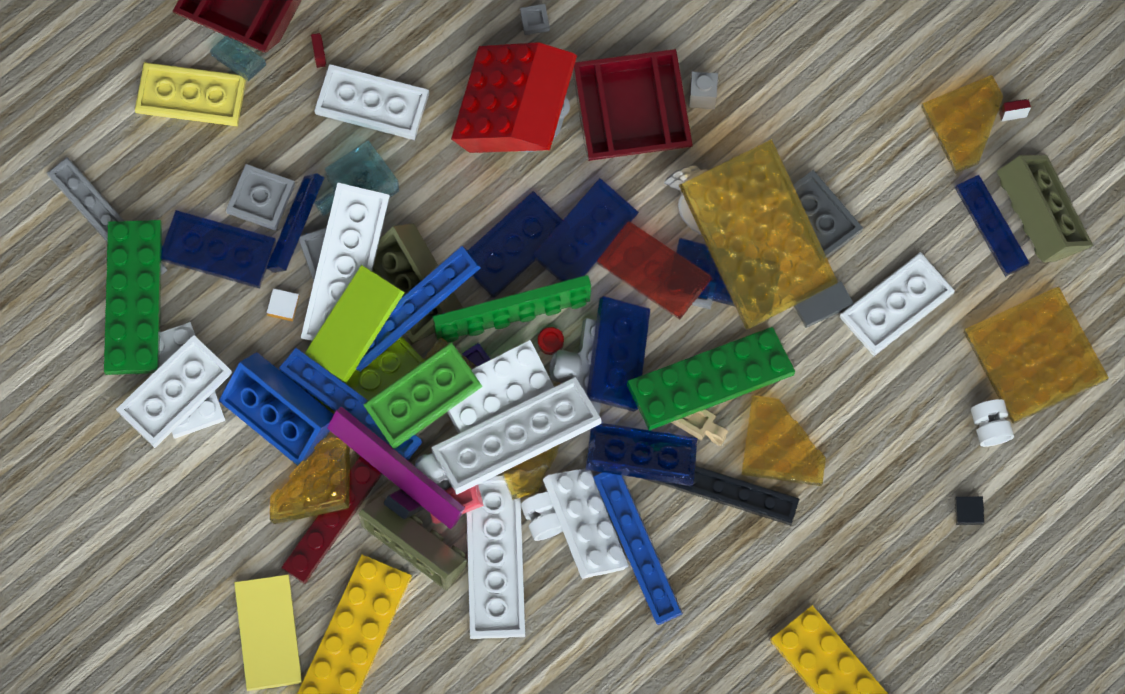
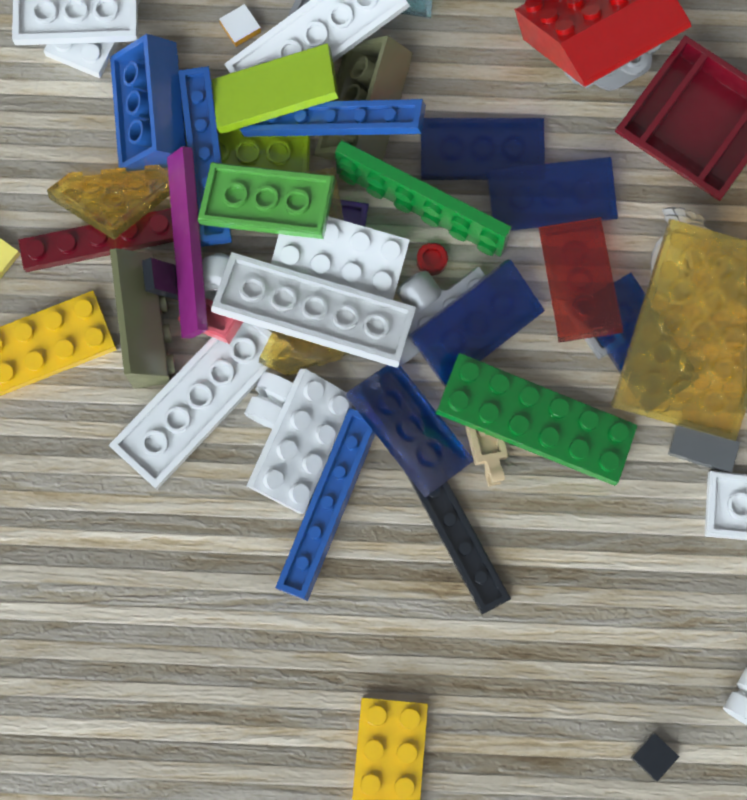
camera: 45 degrees right, 5 degrees up
(779, 446) = (539, 535): clear yellow plate -> none

